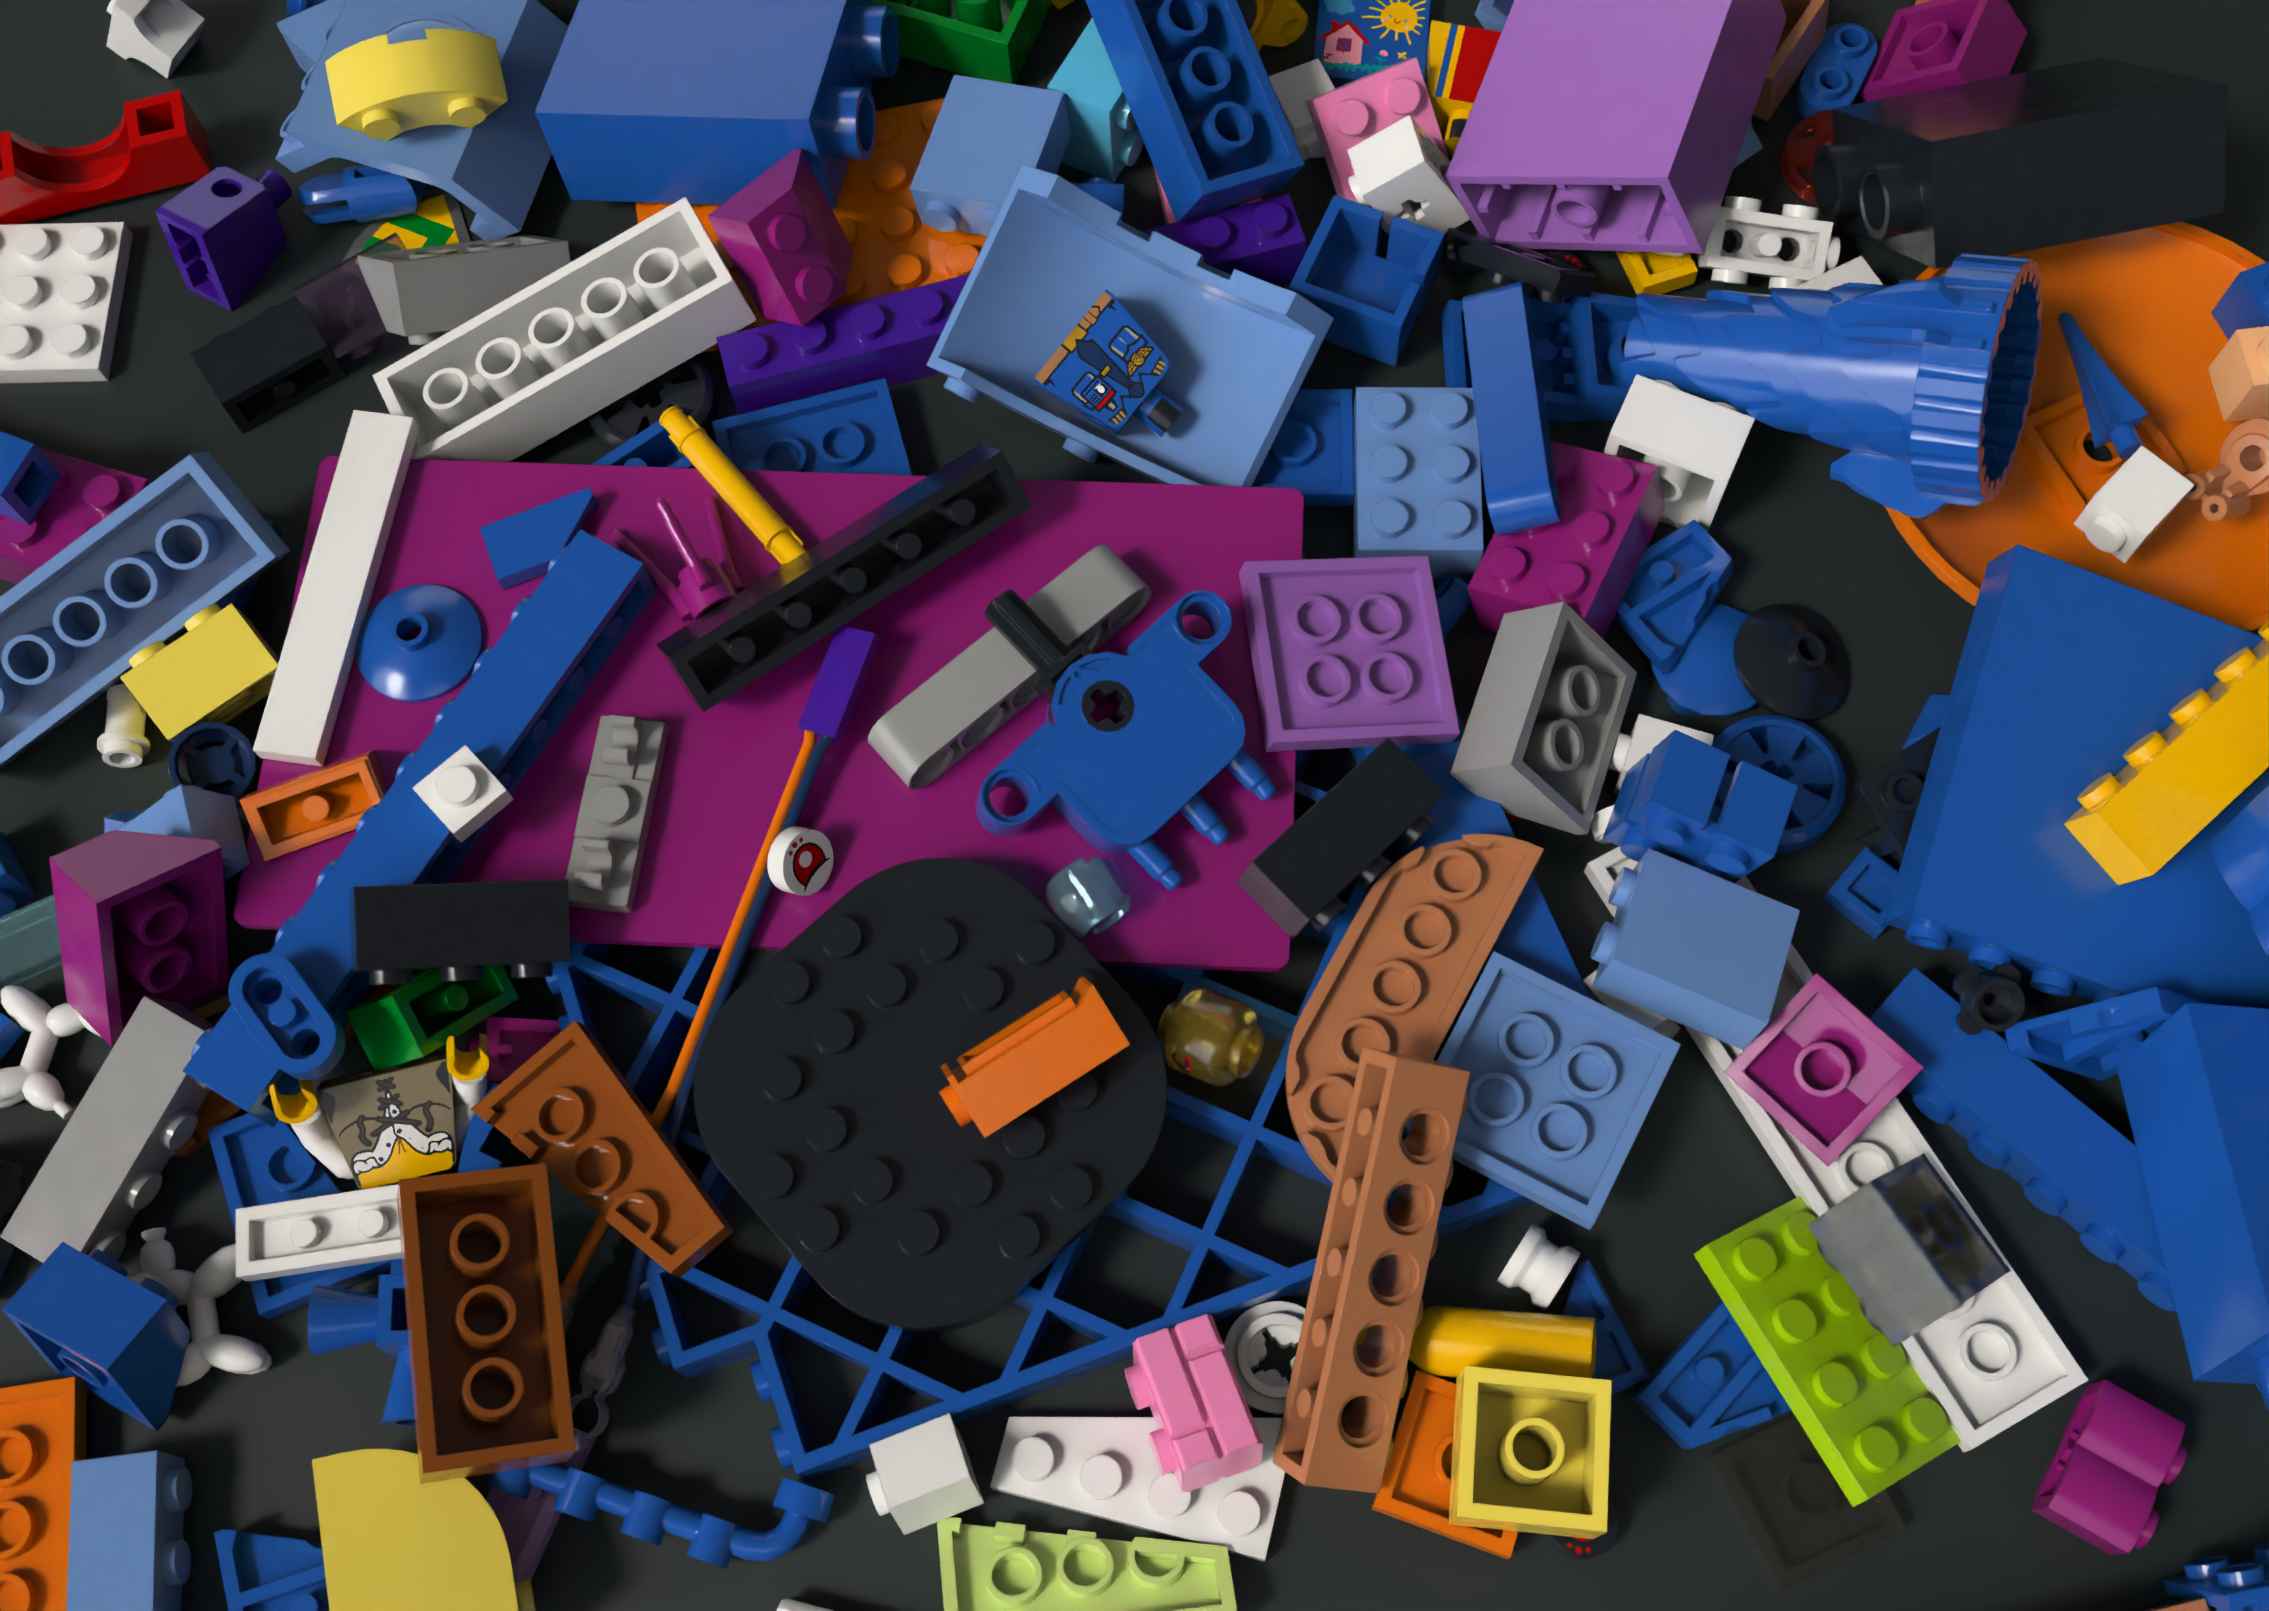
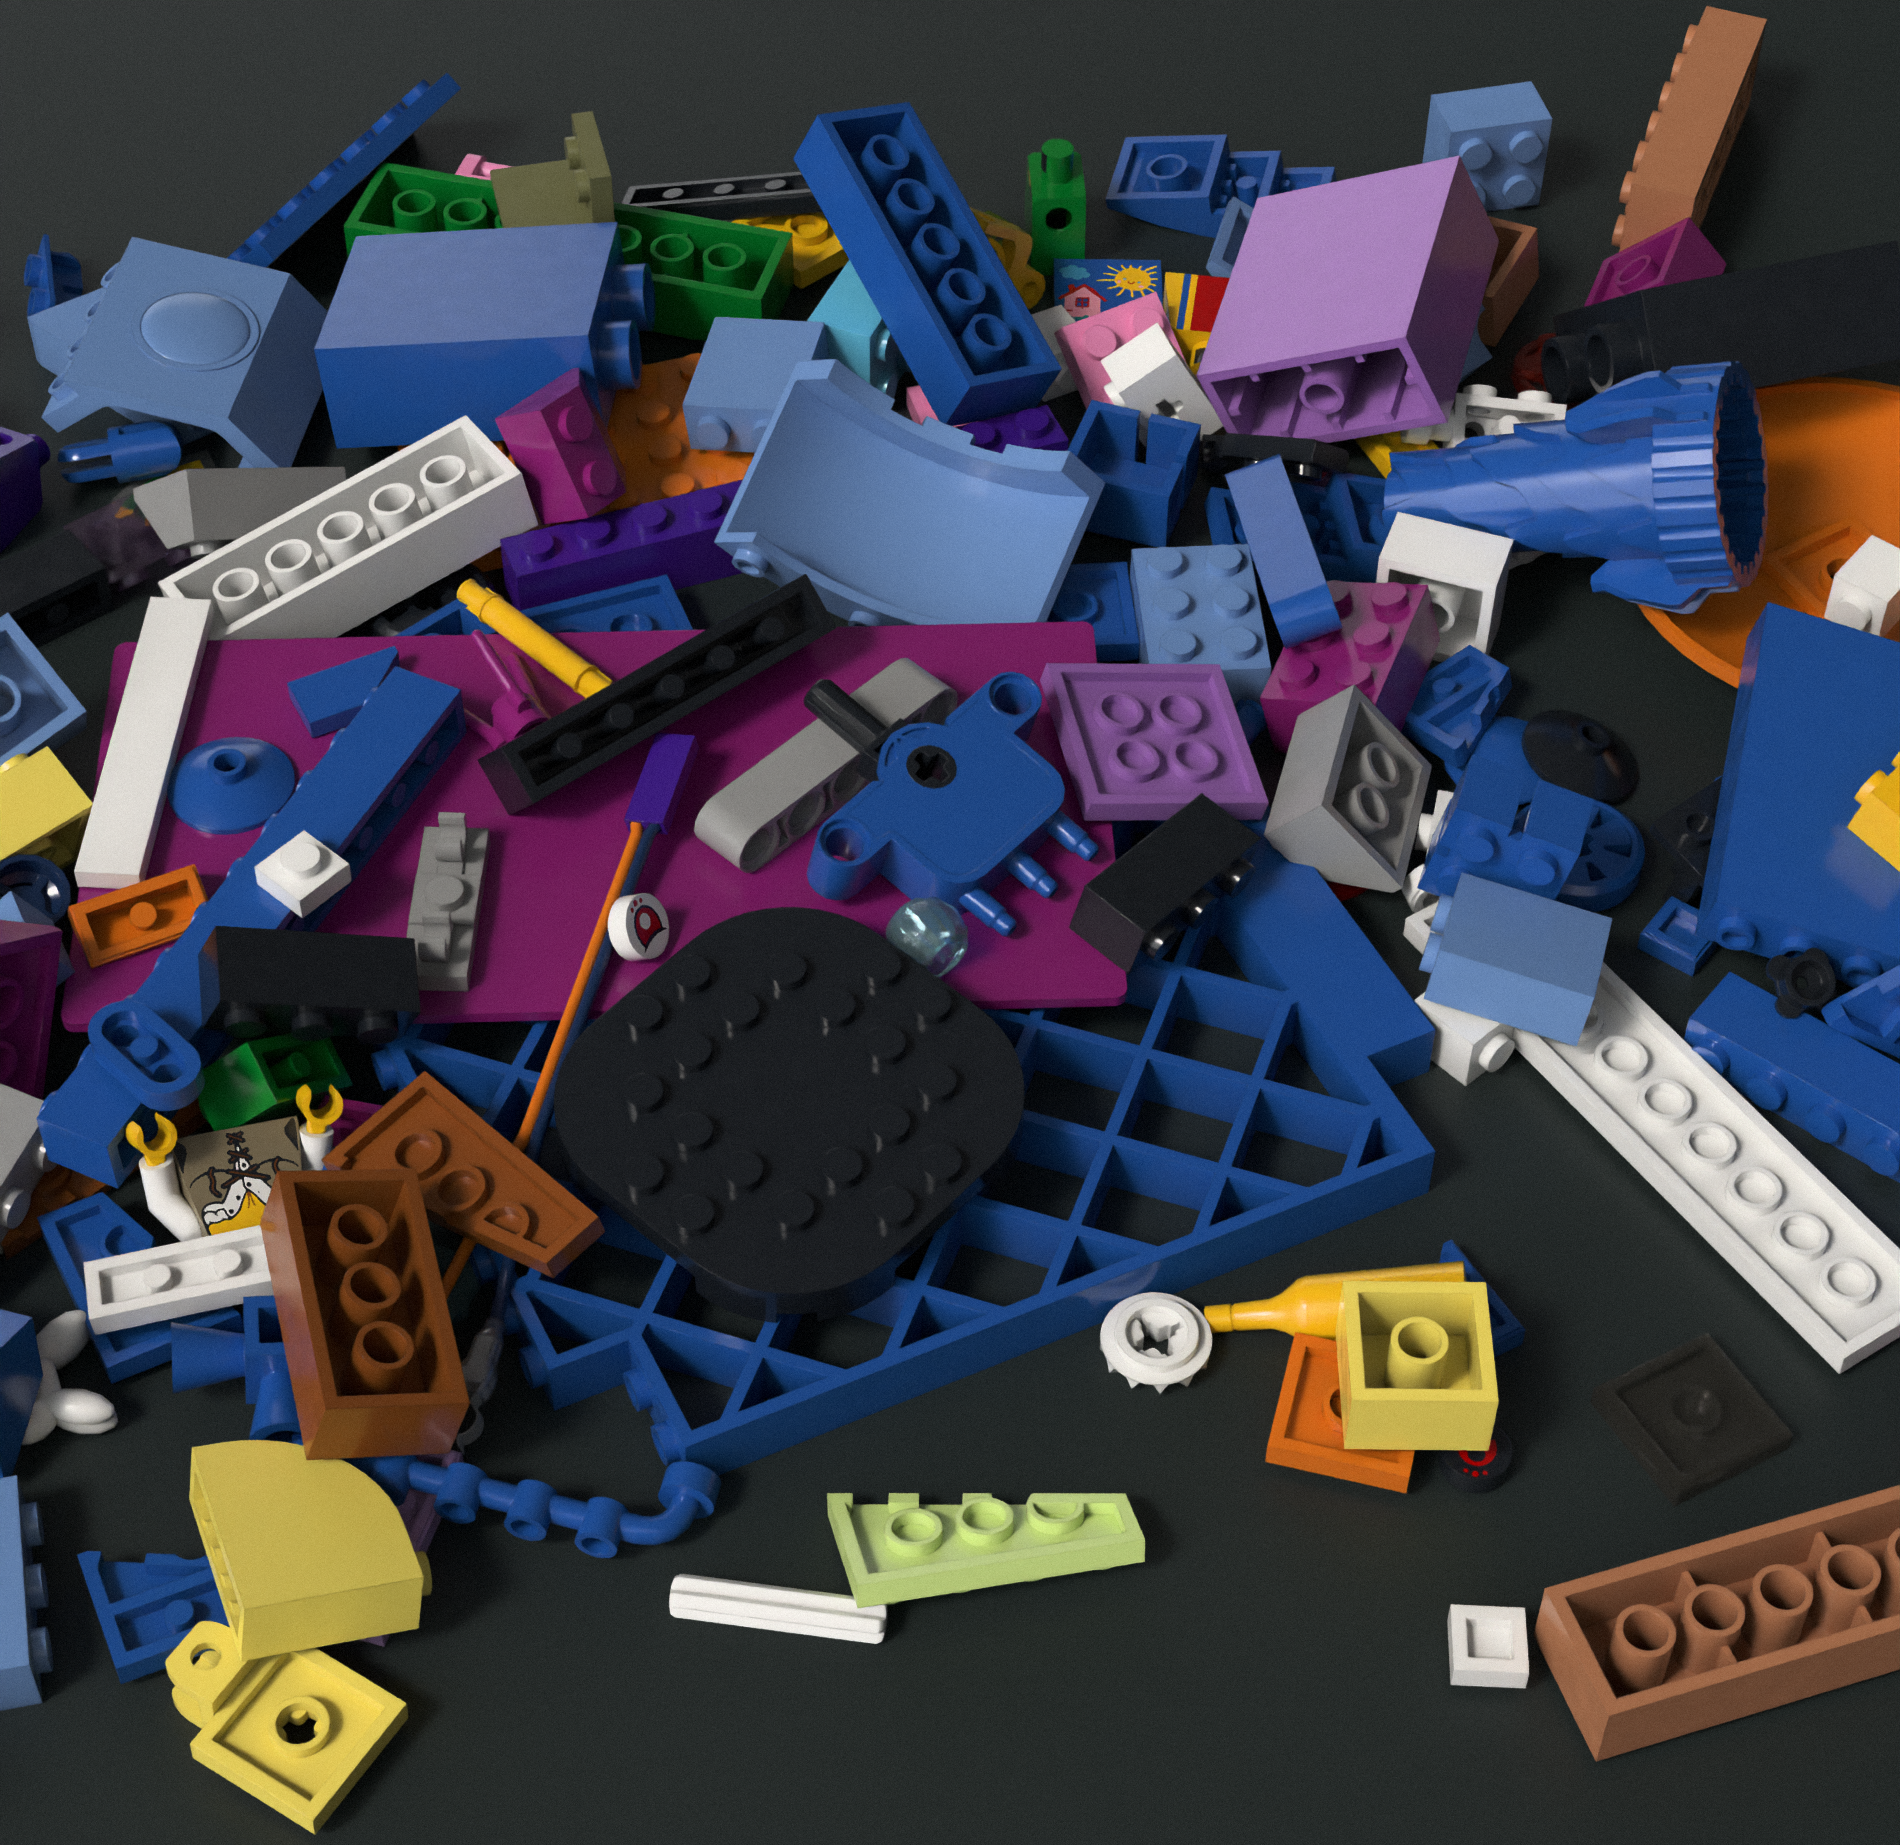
camera: 10 degrees left, 20 degrees down
(416, 83) = (195, 330): light yellow brick -> none
(923, 1475) = (813, 1447): white brick -> none
(1032, 1059) = (892, 1042): orange window -> none
(1110, 371) = (891, 545): torso -> none
(1112, 1474) = (1039, 1445): white wing -> none
(1195, 1403) = (1079, 1365): bright pink brick -> none
(1211, 1037) = (1061, 1051): clear yellow head -> none
(1343, 1297) = (1202, 1384): nougat brick -> none
(1400, 974) = (1235, 1013): nougat plate -> none
(1539, 1267) = (1402, 1240): white wheel -> none
(1551, 1088) = (1385, 1077): medium blue plate -> none
(1710, 1384) = (1600, 1326): blue wing -> none
(1823, 1069) = (1656, 1053): magenta slope -> none
(1828, 1362) = (1694, 1289): lime plate -> none
(1839, 65) = (1553, 294): blue plate -> none
(1907, 1249) = (1752, 1188): clear smoke slope -> none
(2109, 405) = (1841, 519): blue piece -> none

